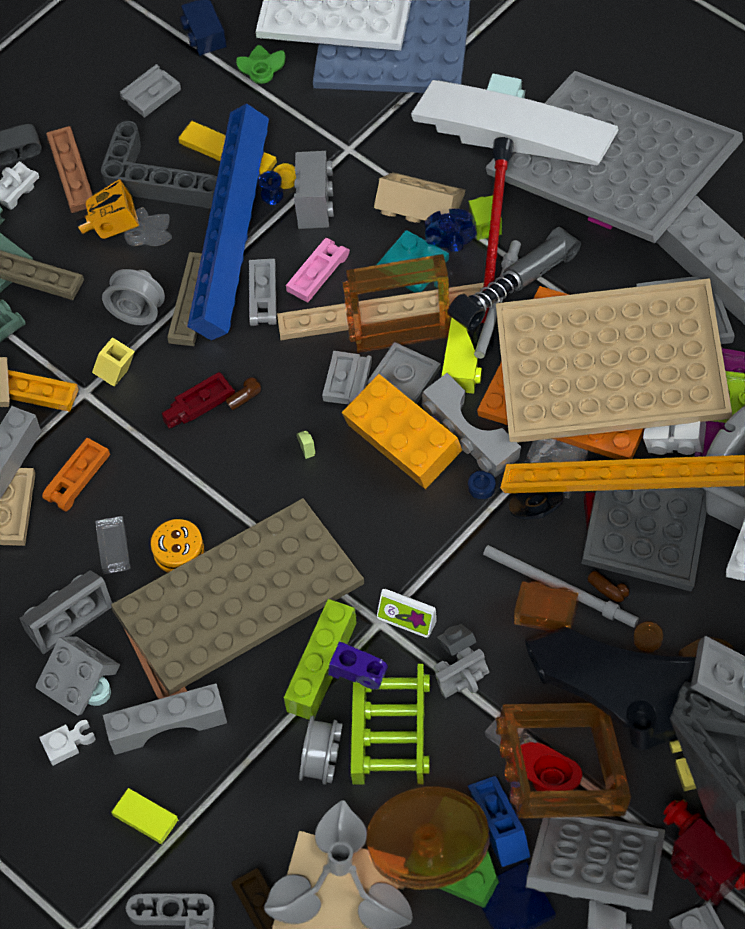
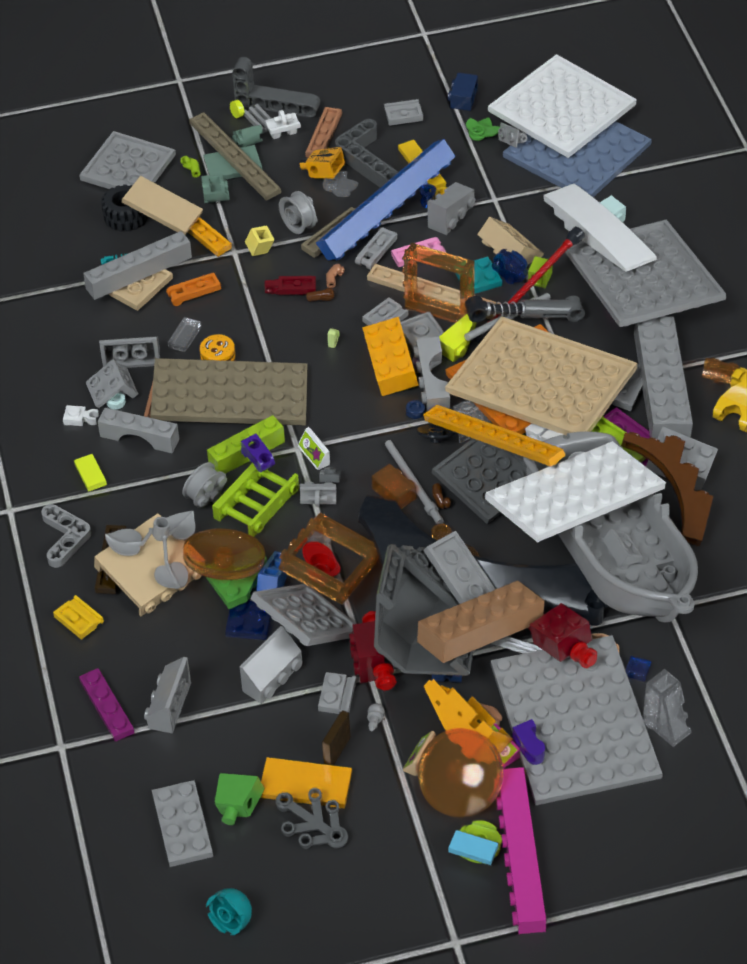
camera: 30 degrees right, 10 degrees down
(234, 357) = (331, 274): none -> nougat arm
(309, 55) = (511, 135): none -> light grey hinge

